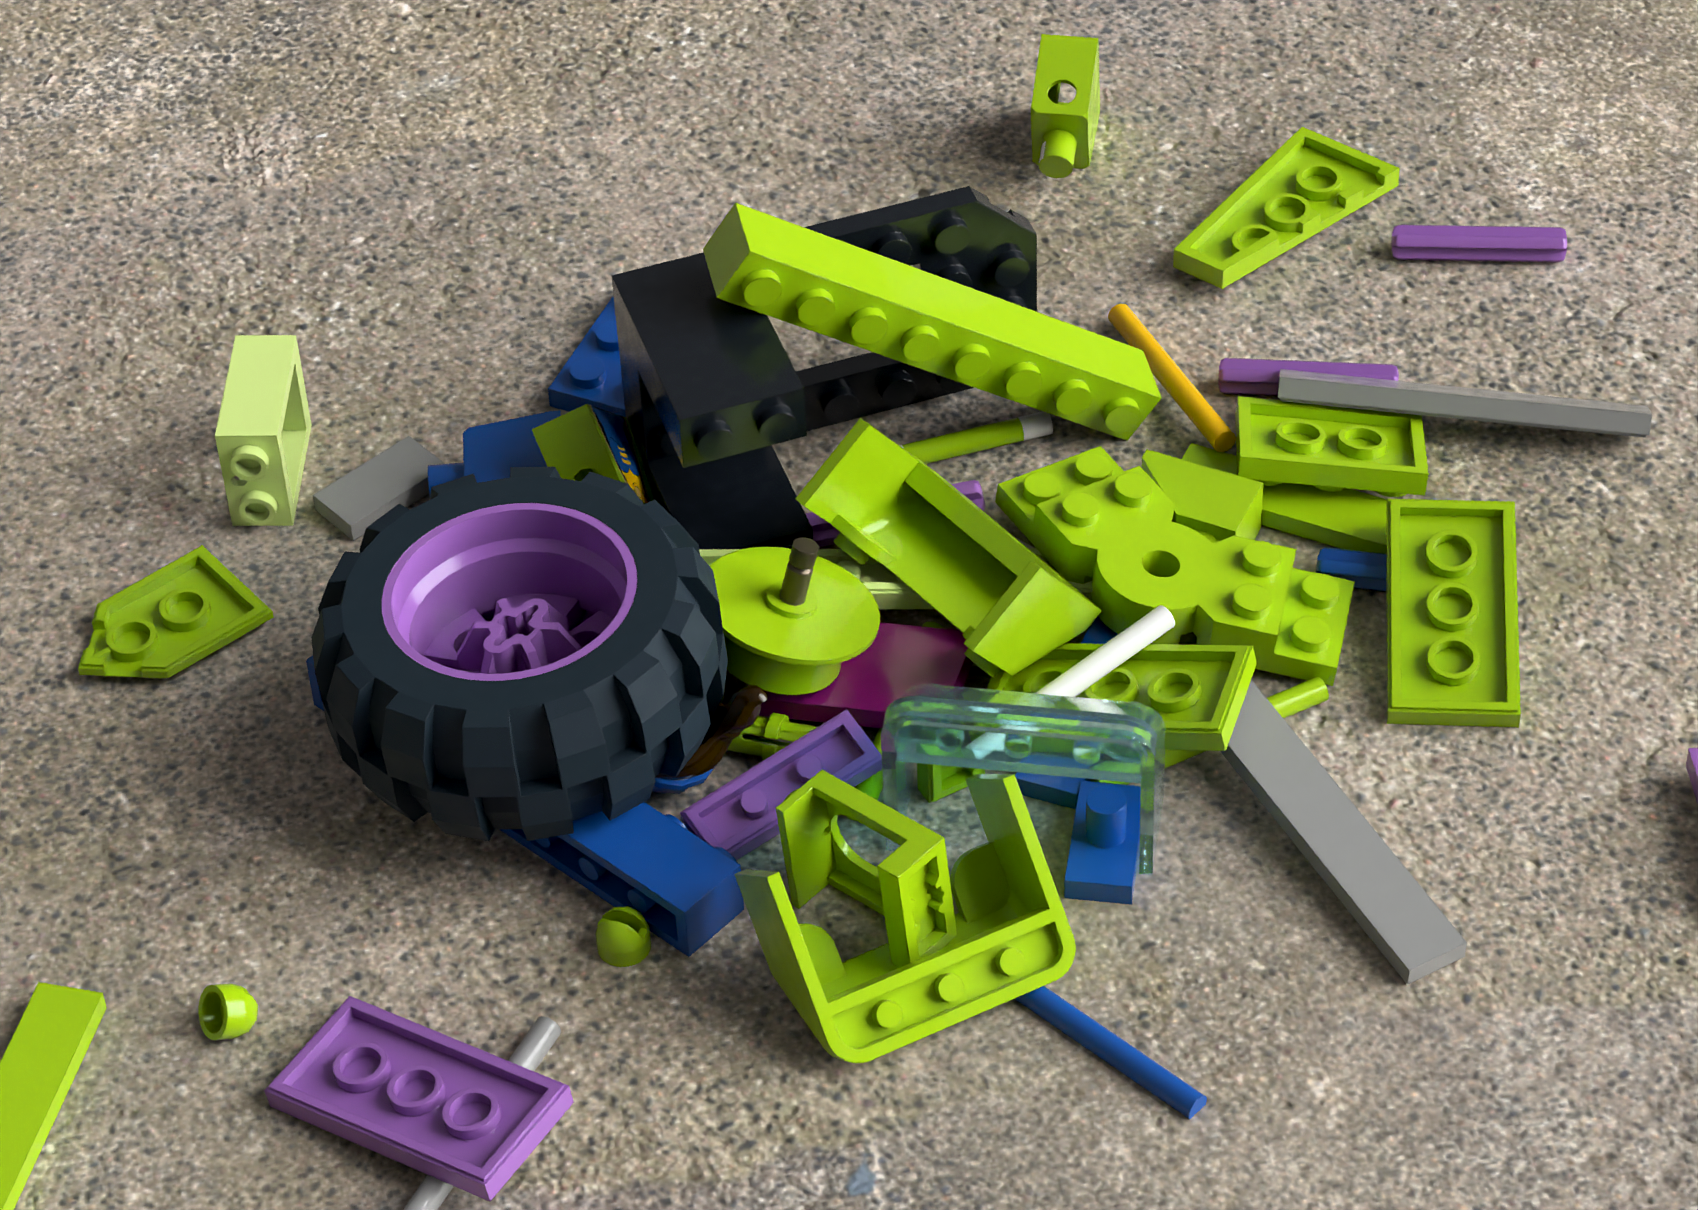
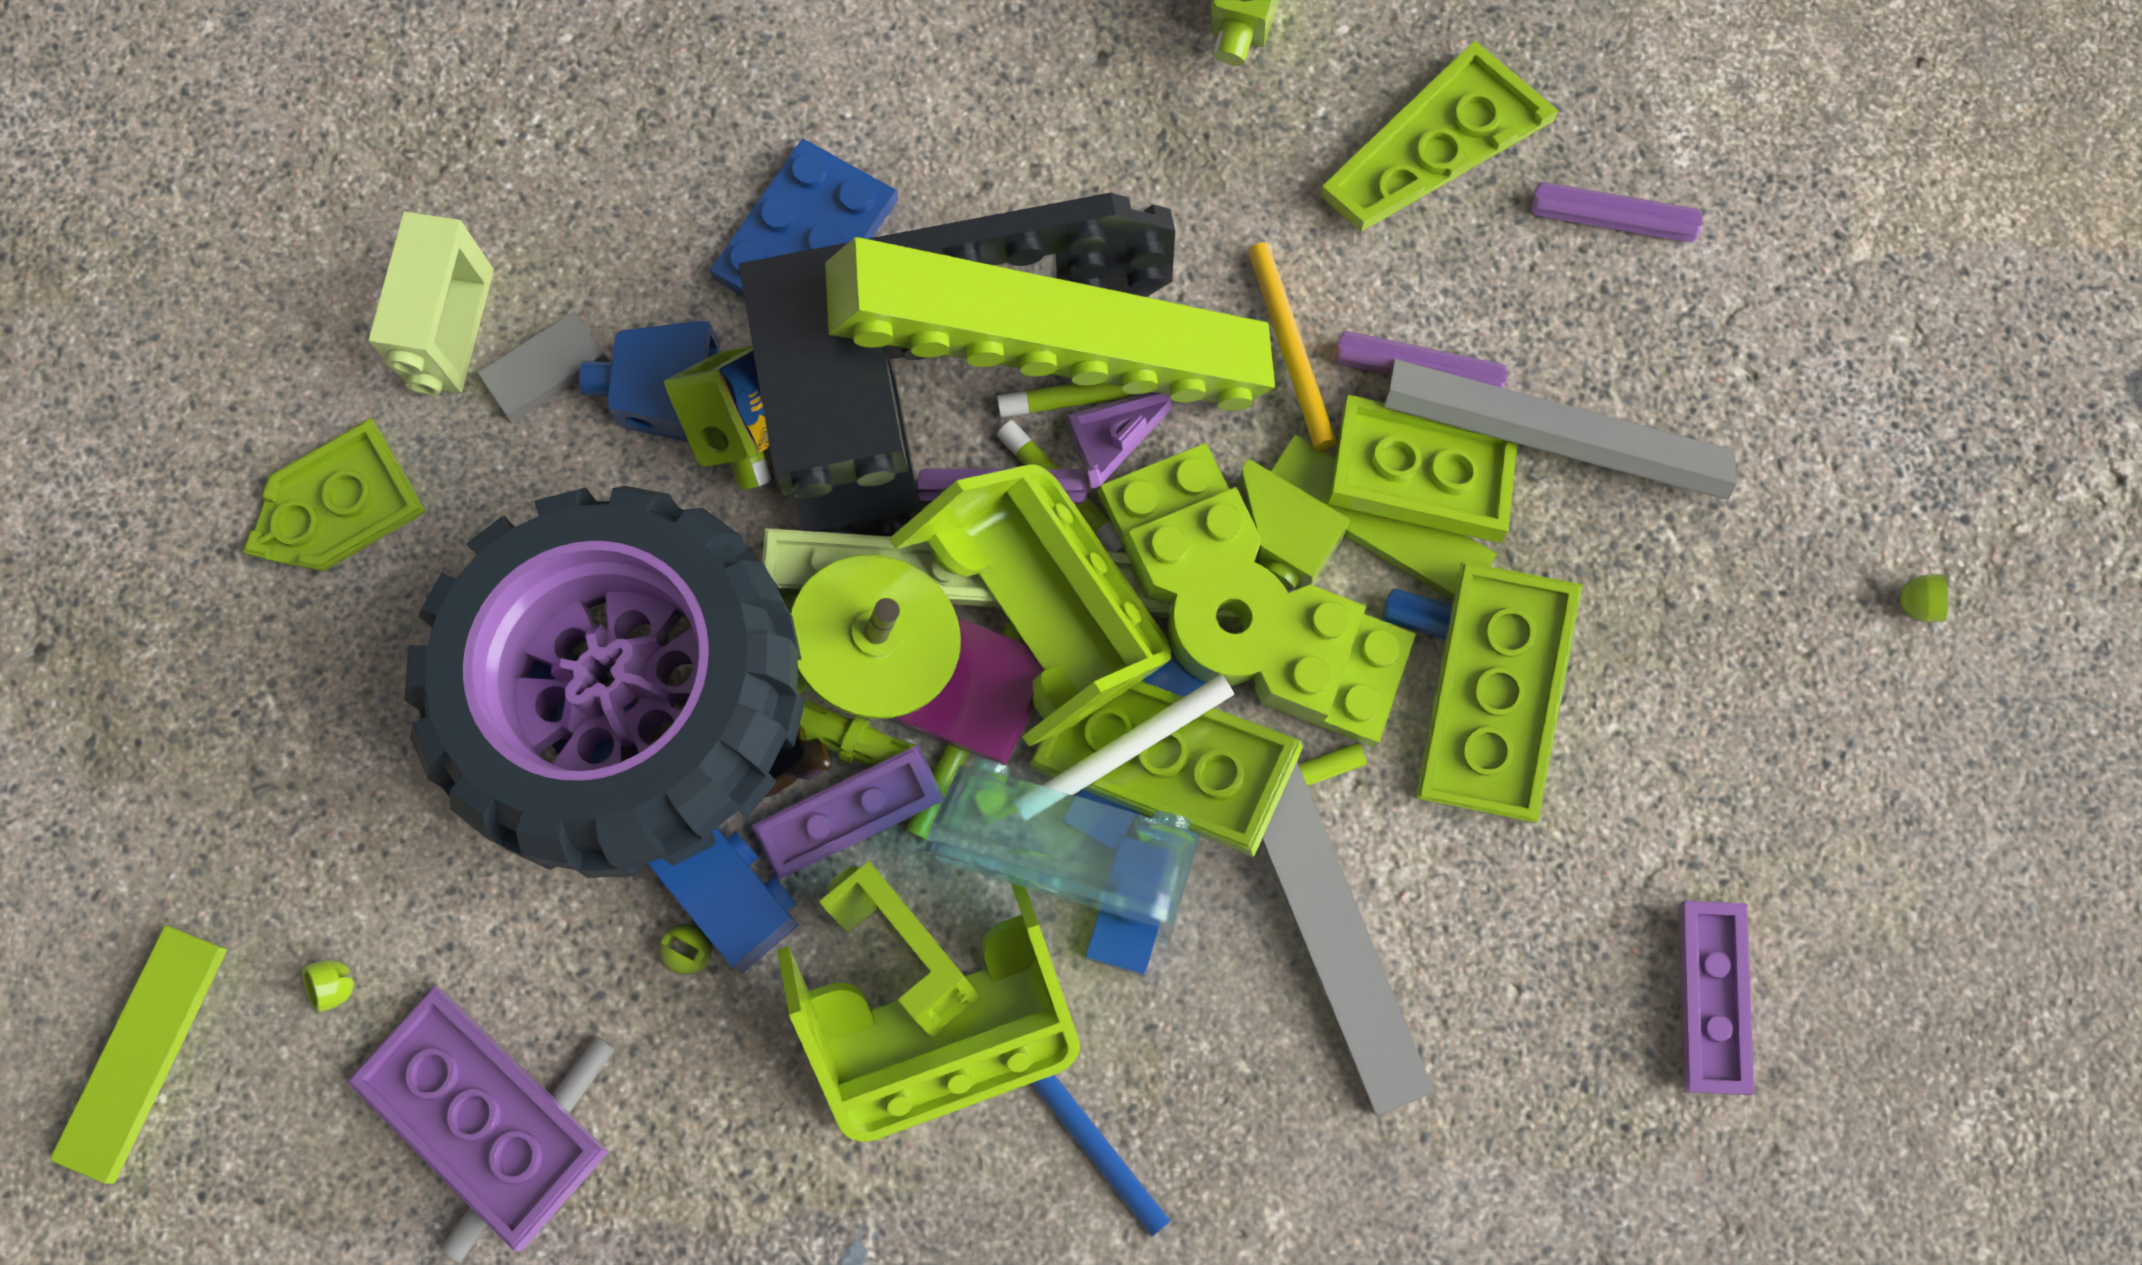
camera: 10 degrees right, 30 degrees up
(1001, 458) = (1113, 430): none -> medium lavender tile

